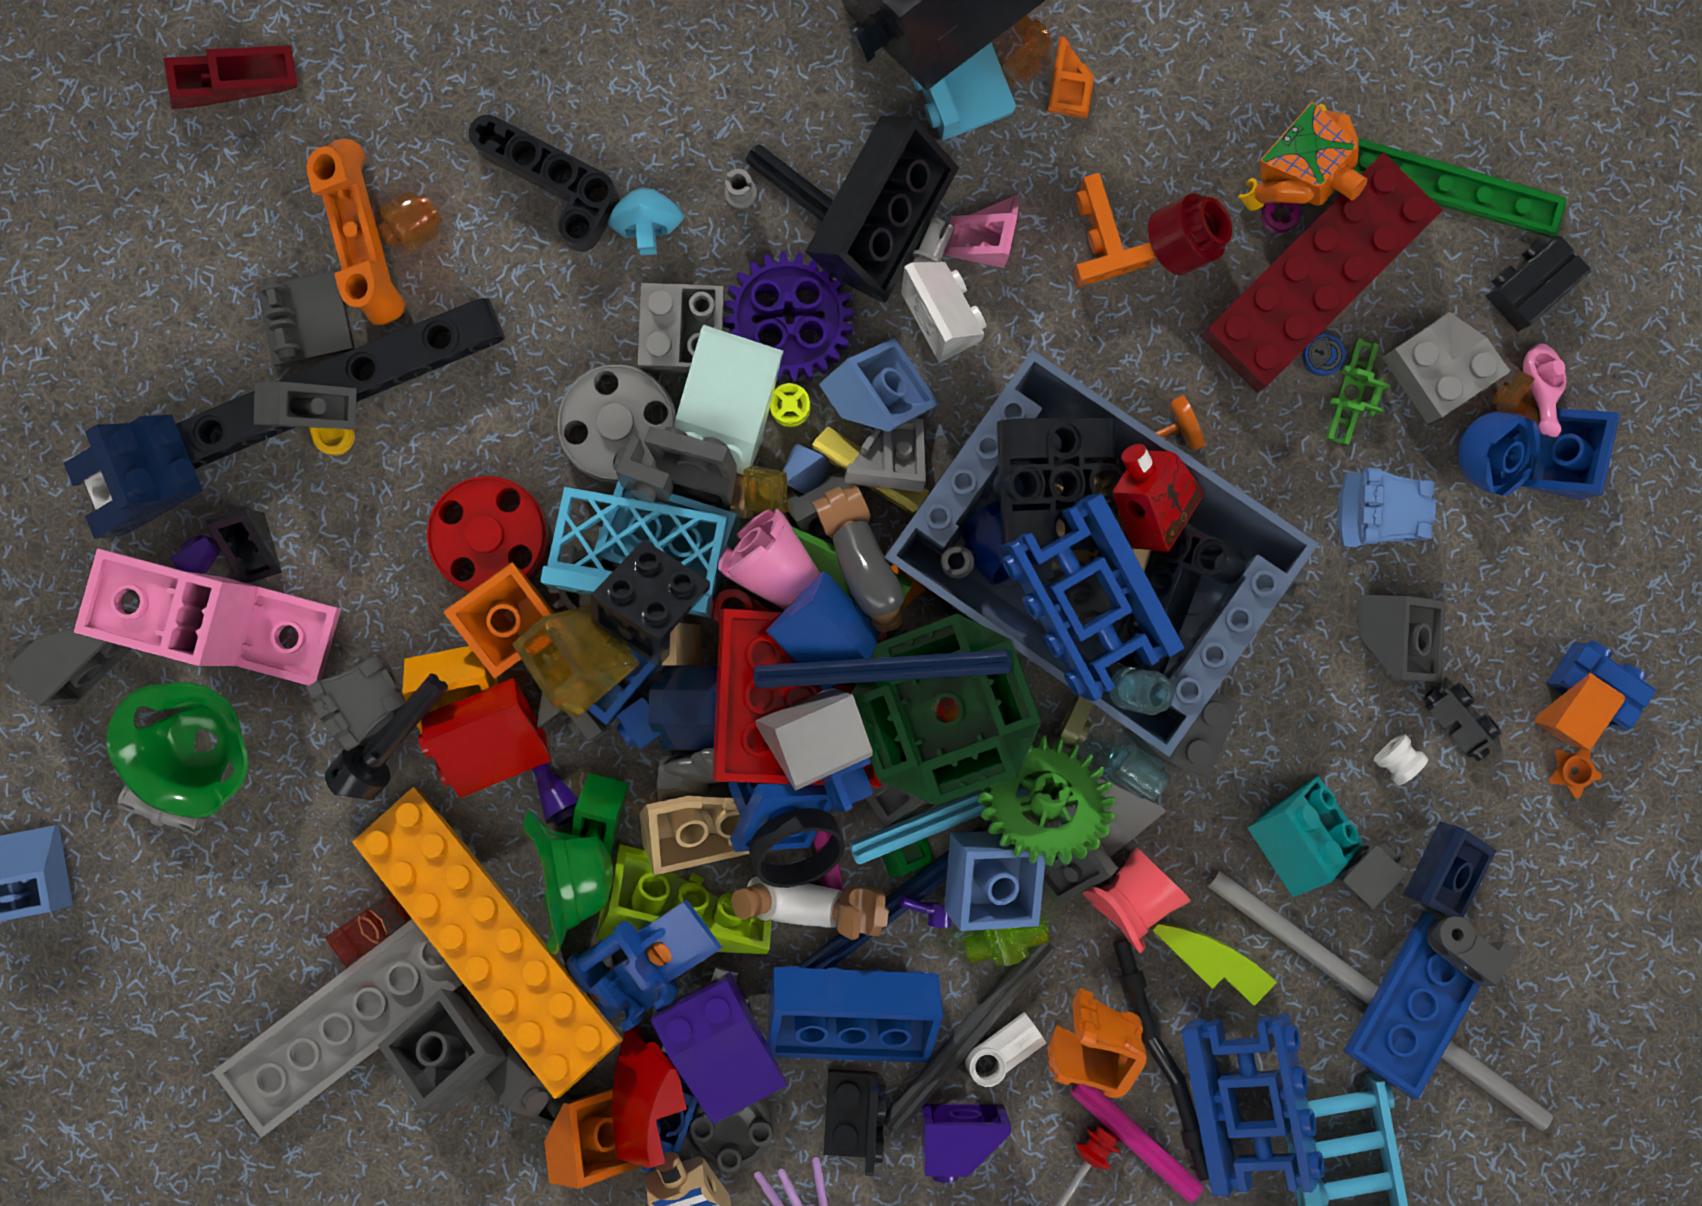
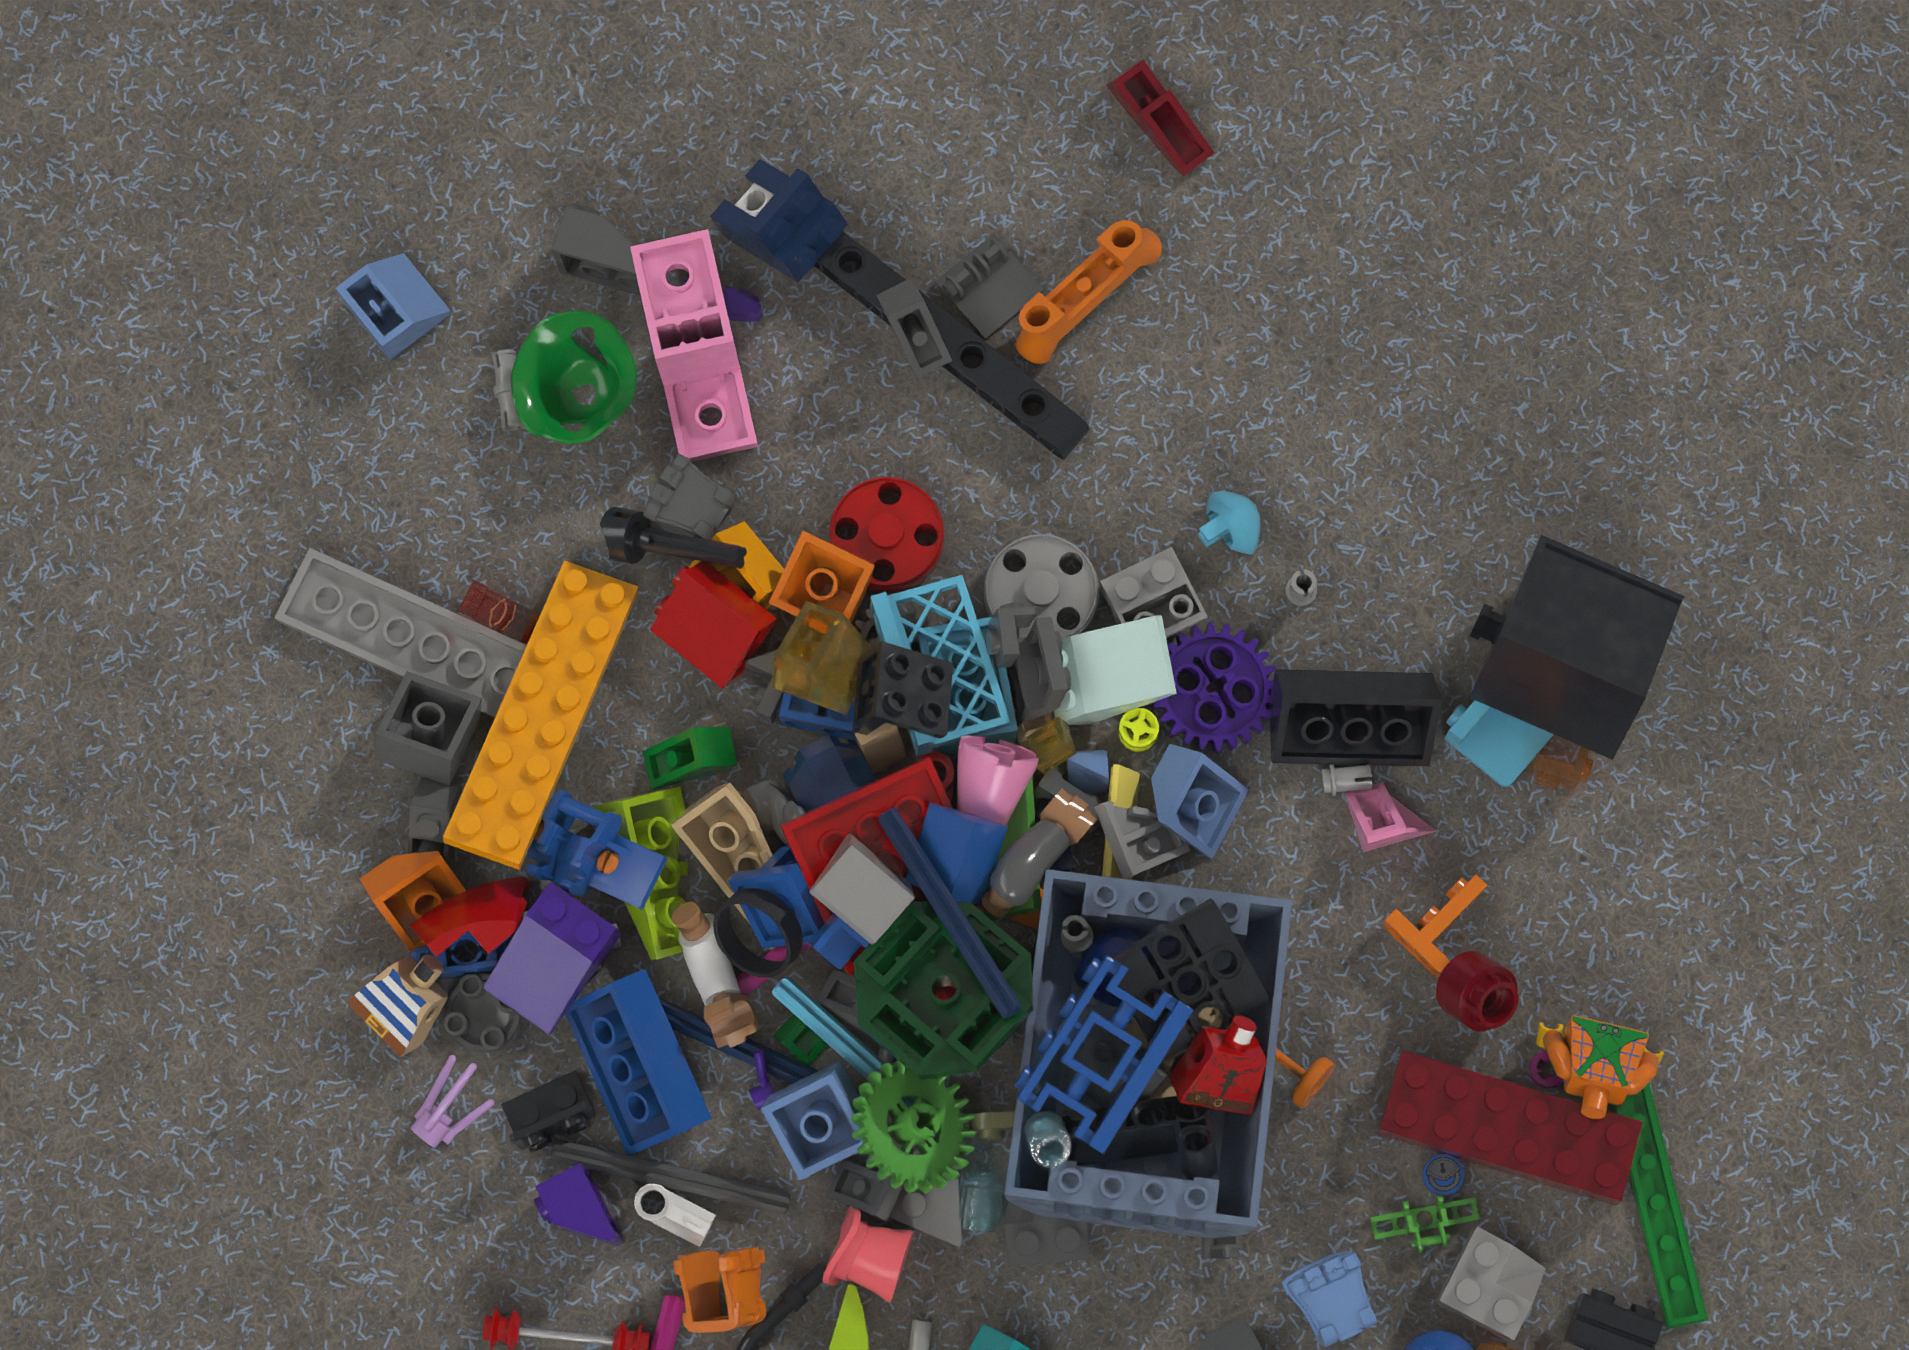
camera: 65 degrees right, 10 degrees down
(246, 543) = (771, 340): black slope -> none
(332, 441) = (897, 364): yellow tile -> none
(409, 221) = (1118, 328): clear orange head -> none
(542, 172) = (1222, 416): black beam -> none
(556, 798) = (693, 708): dark purple cone -> none
(575, 877) = (636, 757): green piece -> none
(634, 724) = (788, 742): blue plate -> none
(789, 181) = (1334, 625): black axle -> none
(941, 309) = (1293, 812): white slope -> none
(1005, 945) = (770, 1164): clear neon green axle -> none
(1070, 83) = (1557, 823): orange tile -> none

